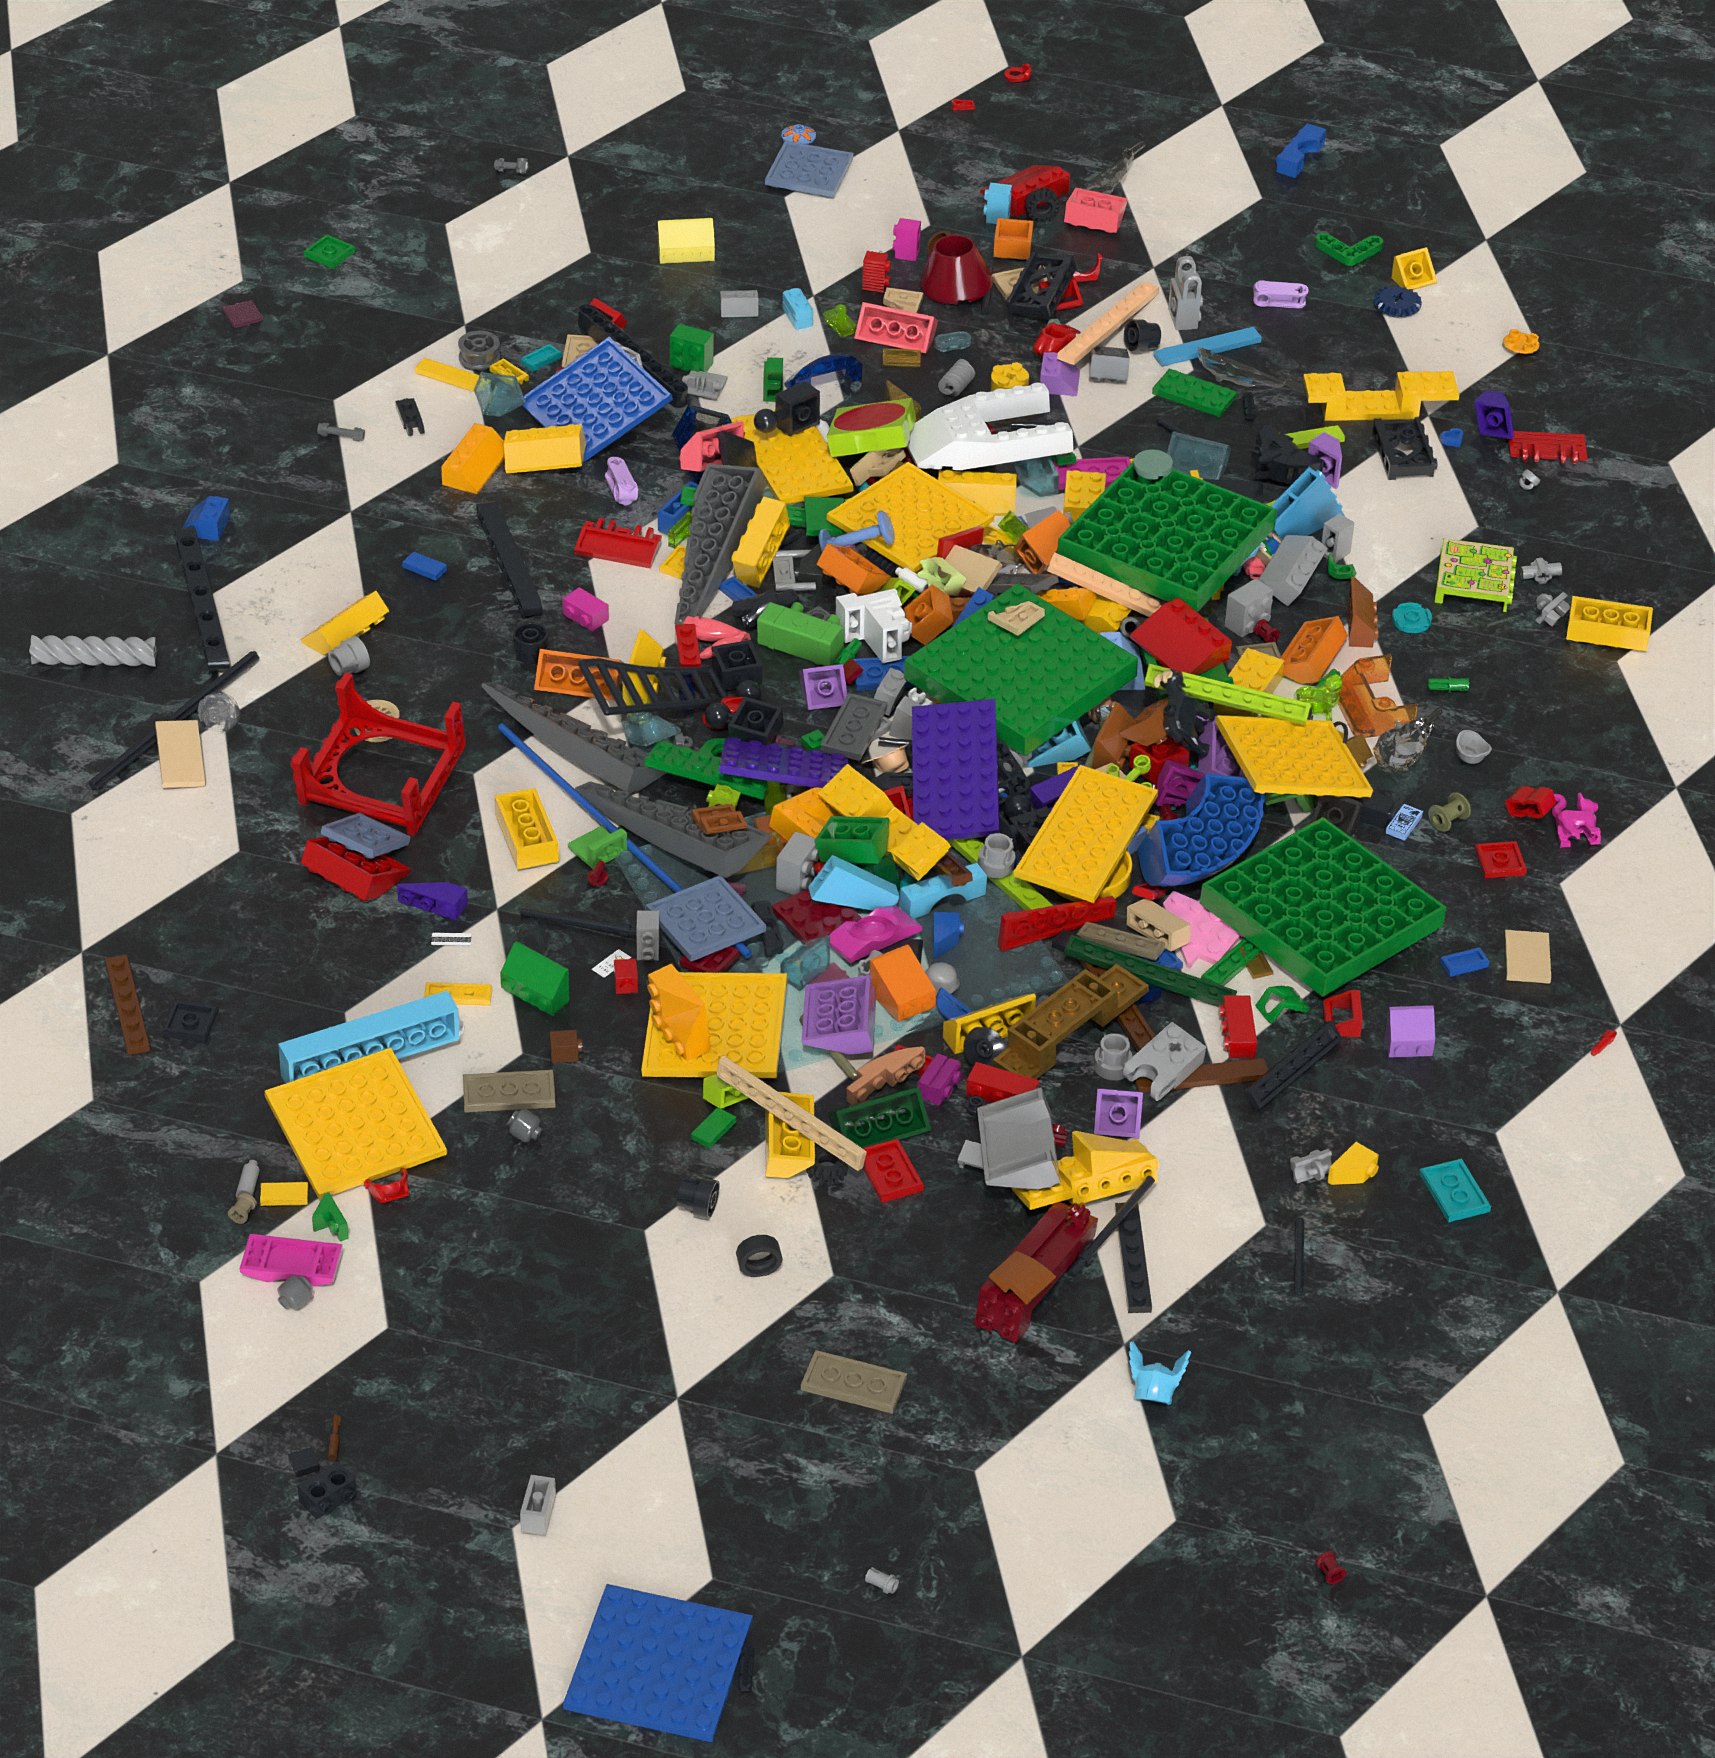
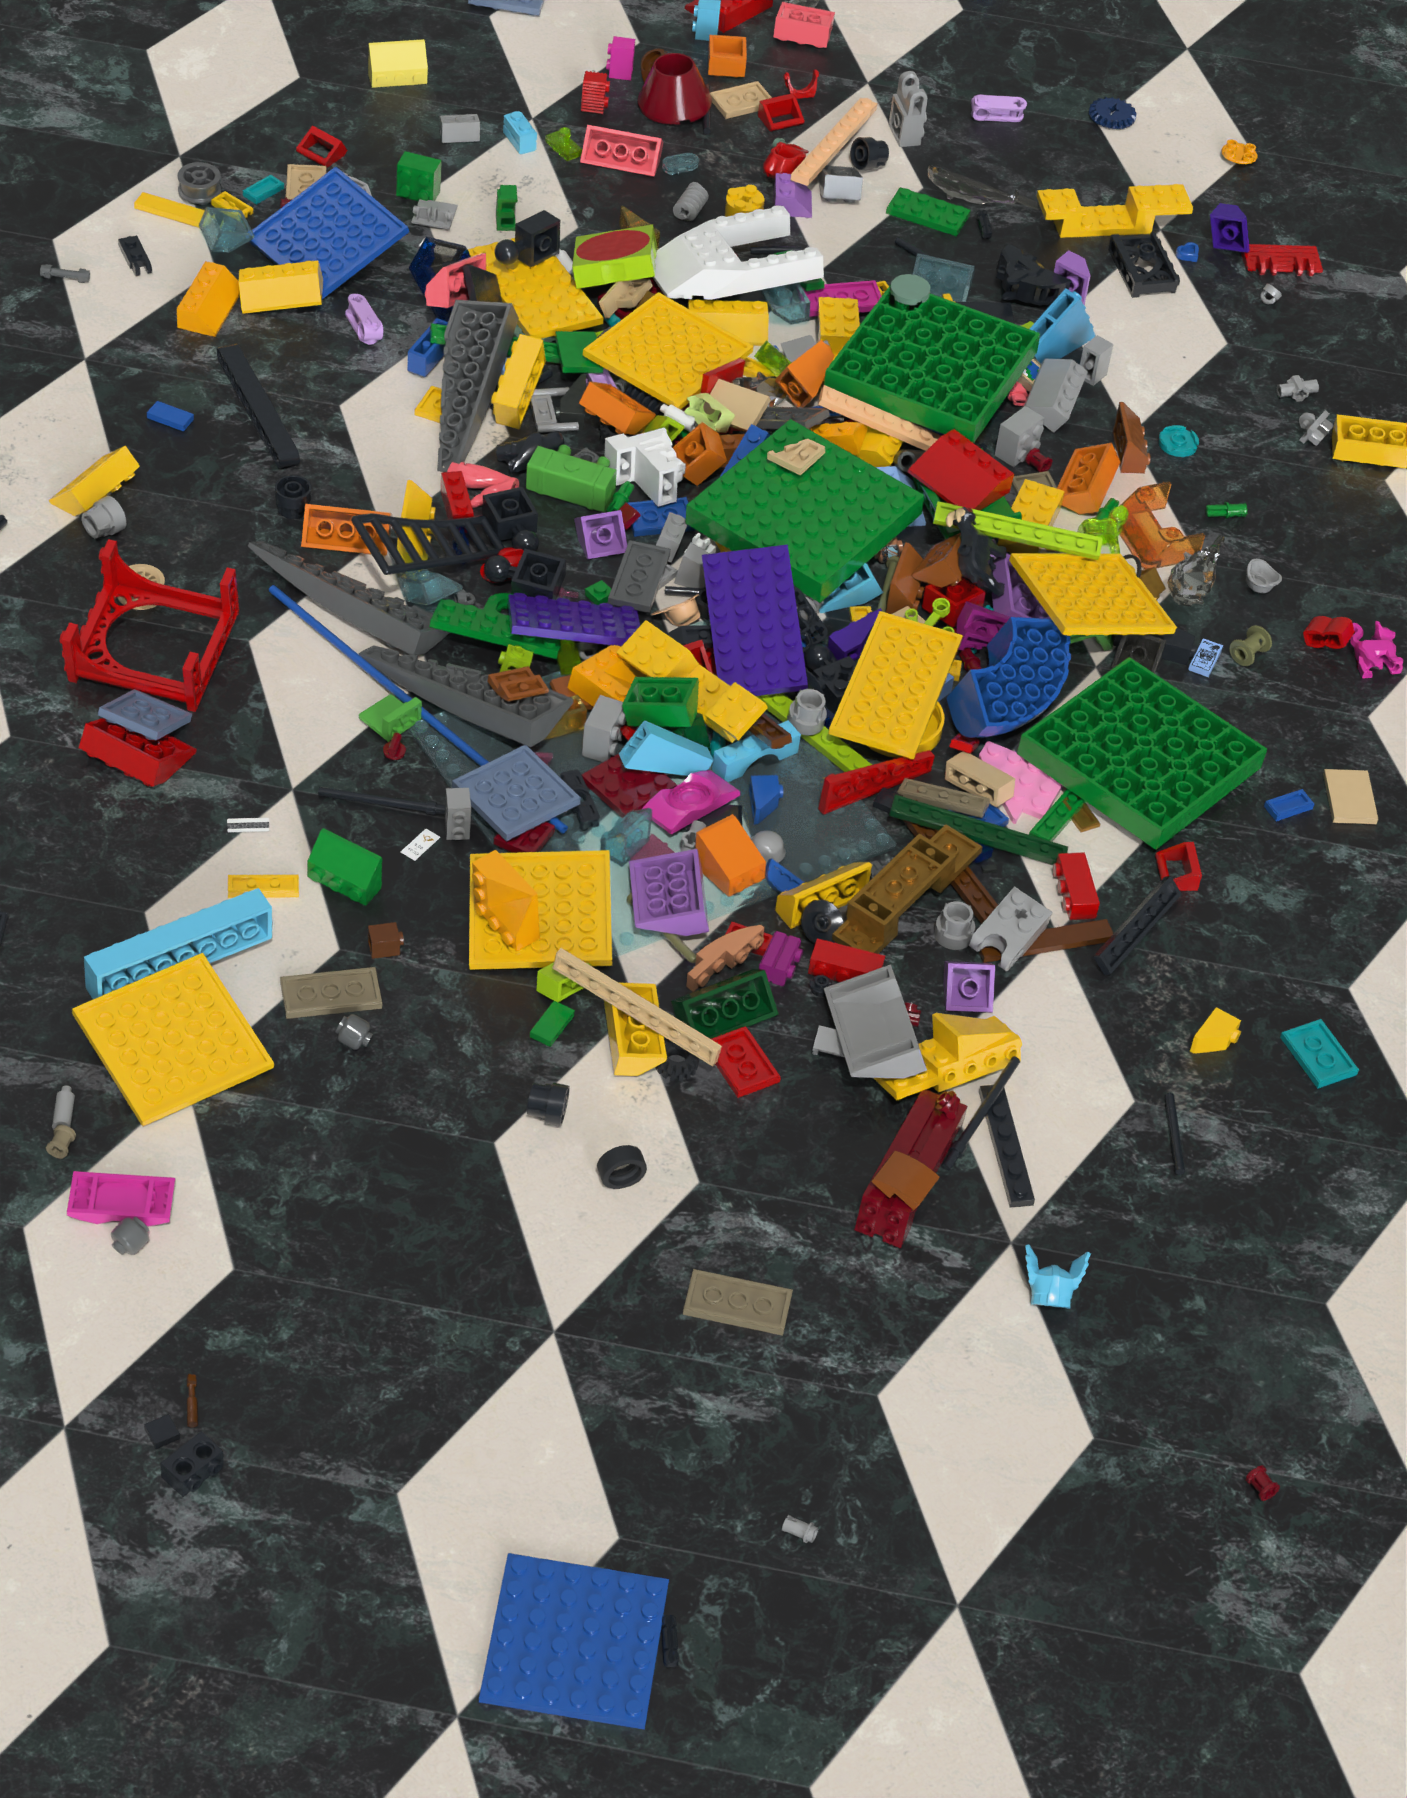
camera: 10 degrees left, 5 degrees up
(284, 1193) = (104, 1122): yellow tile -> none
(328, 1215) = (158, 1145): green slope -> none
(329, 251) = (29, 81): green tile -> none
(389, 1192) = (218, 1114): red helmet -> none
(438, 898) = (227, 780): dark purple slope -> none
(526, 828) = (314, 700): yellow brick -> none
(537, 1505) = (423, 1467): light grey brick -> none
(585, 609) = (344, 458): dark pink brick -> none
(600, 328) = (325, 159): black beam -> none
(618, 544) = (369, 387): red hinge -> none
(625, 976) = (438, 859): red brick -> none
(680, 531) = (432, 370): clear neon green tile -> none
(736, 589) = (497, 432): blue tile -> none
(848, 364) = (564, 189): clear blue windscreen -> none
(884, 528) = (645, 364): medium blue hose -> none
(901, 357) = (630, 181): clear yellow tile -> none
(903, 299) = (624, 121): tan wing -> none
(1037, 197) = (754, 27): black tyre -> none
(1062, 271) = (769, 123): black fence -> none
(1216, 344) = (944, 159): dark azure tile -> none
(1291, 1001) = (1125, 856): green piece -> none
(1303, 438) = (1048, 256): lime tile -> none
(1311, 1166) = (1176, 1034): light grey hips -> none
(1340, 571) = (1101, 395): green hair -> none
(1349, 255) = (1052, 64): green beam -> none
(1410, 1031) = (1250, 884): medium lavender slope -> none
(1413, 269) = (1124, 80): yellow slope -> none
(1476, 571) = (1234, 391): panel -> none
(1500, 859) = (1306, 694): red tile -> none

